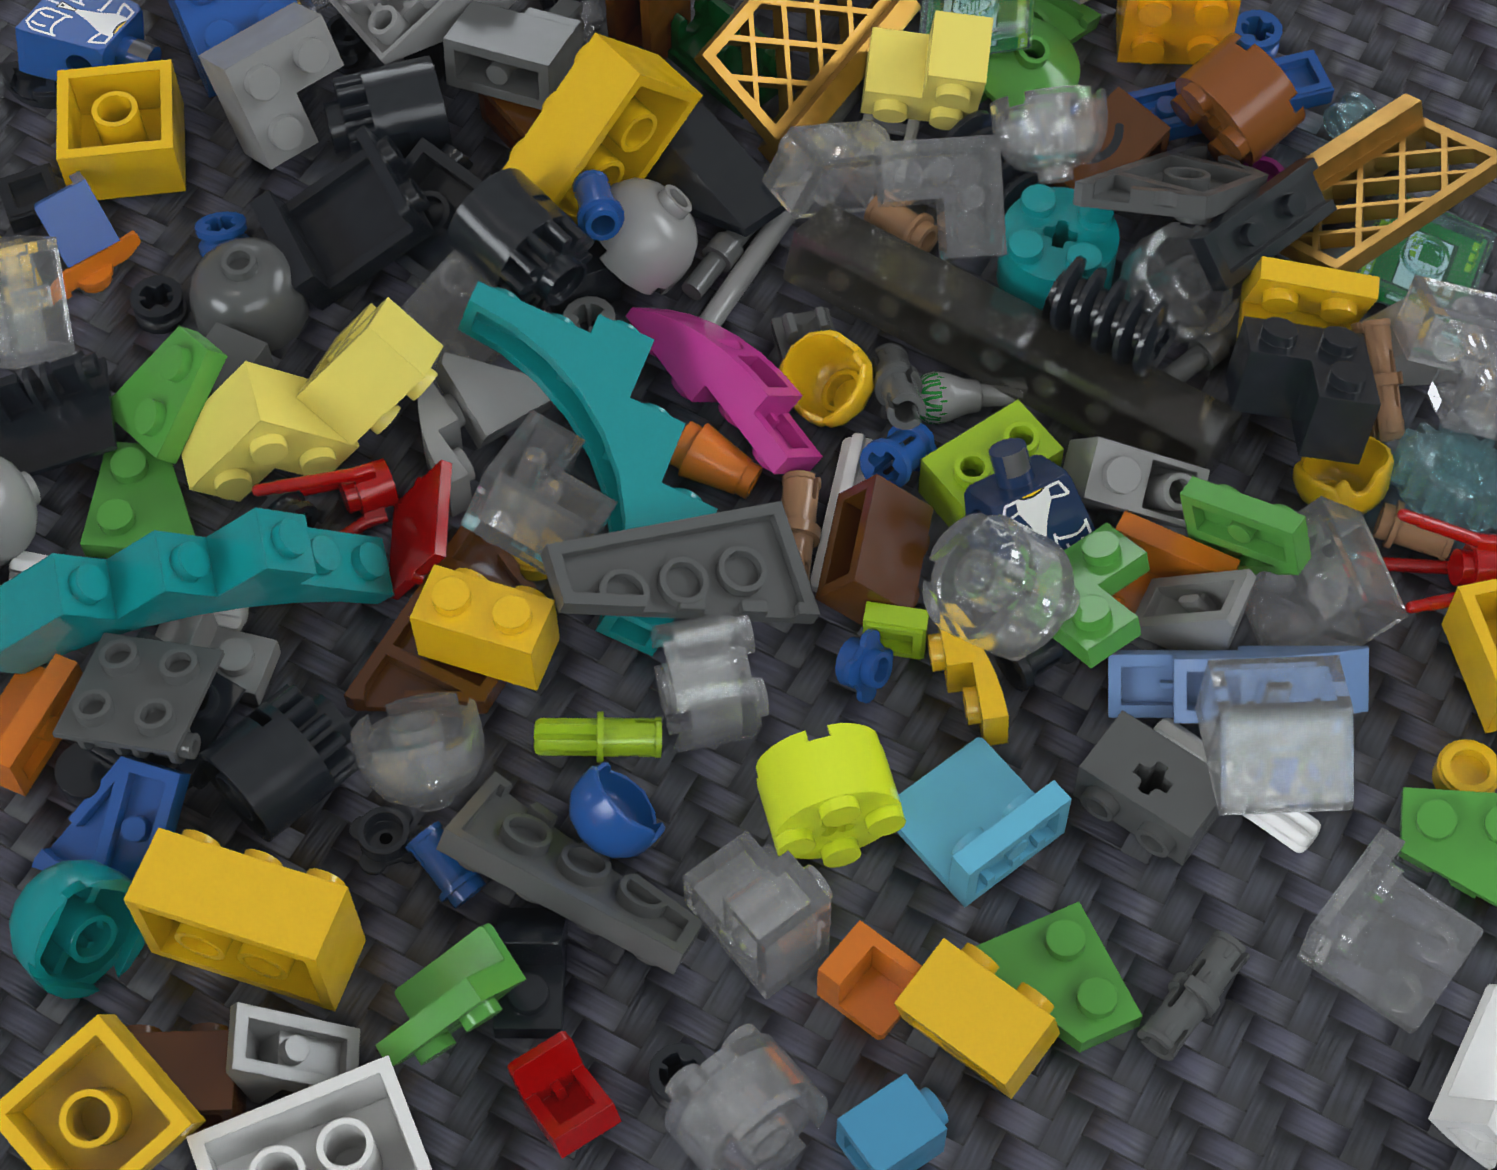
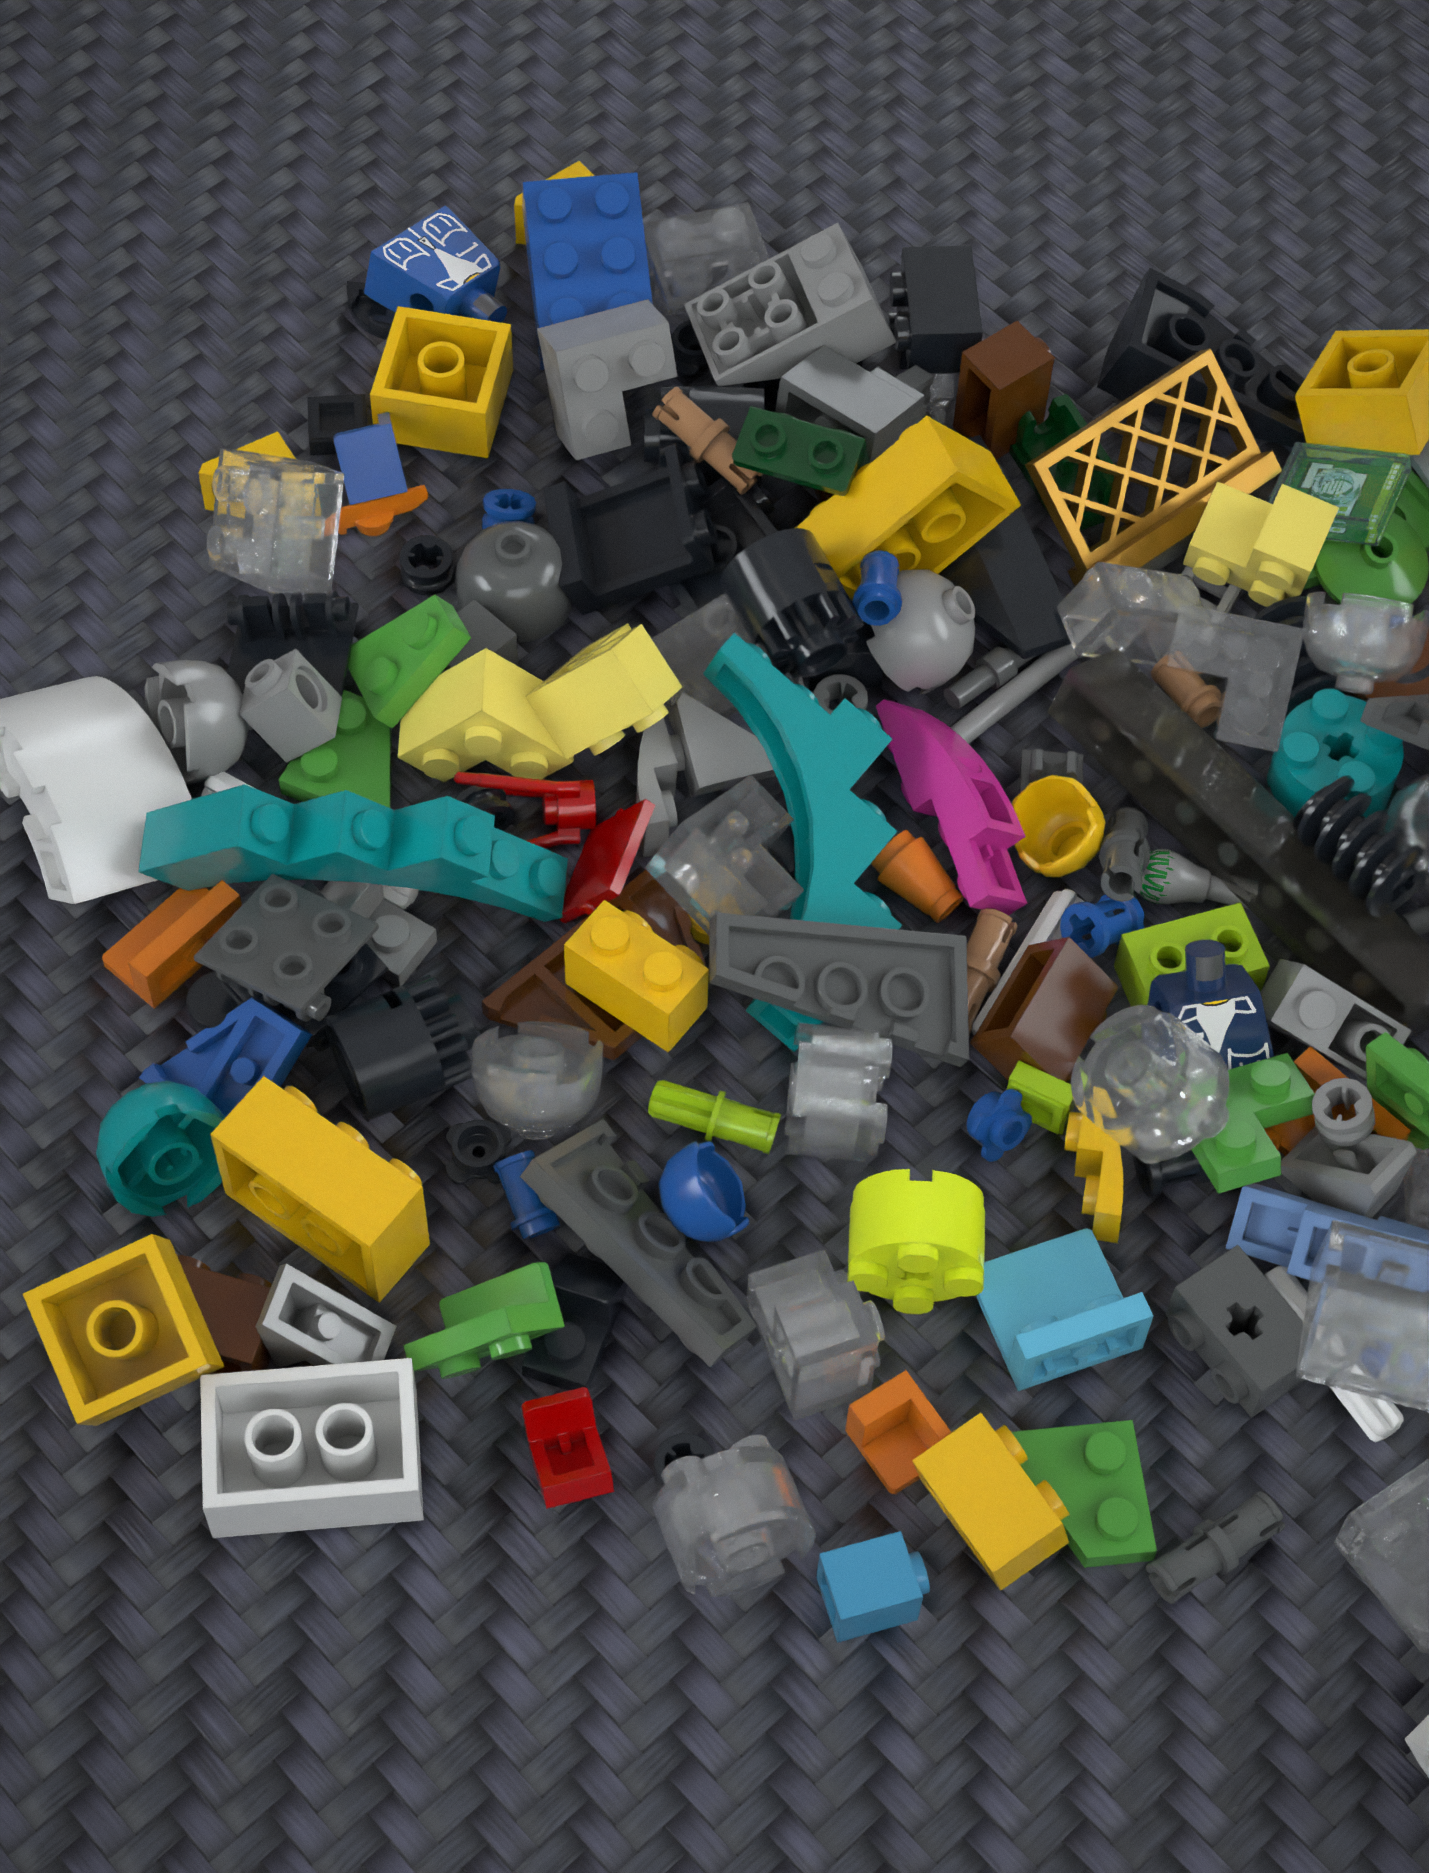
camera: 15 degrees right, 0 degrees up
(70, 469) = (290, 705): none -> light grey brick
(394, 114) = (705, 437): none -> medium nougat pin
(484, 99) = (799, 451): none -> dark green bracket
(1176, 541) = (1339, 1131): none -> light grey bush

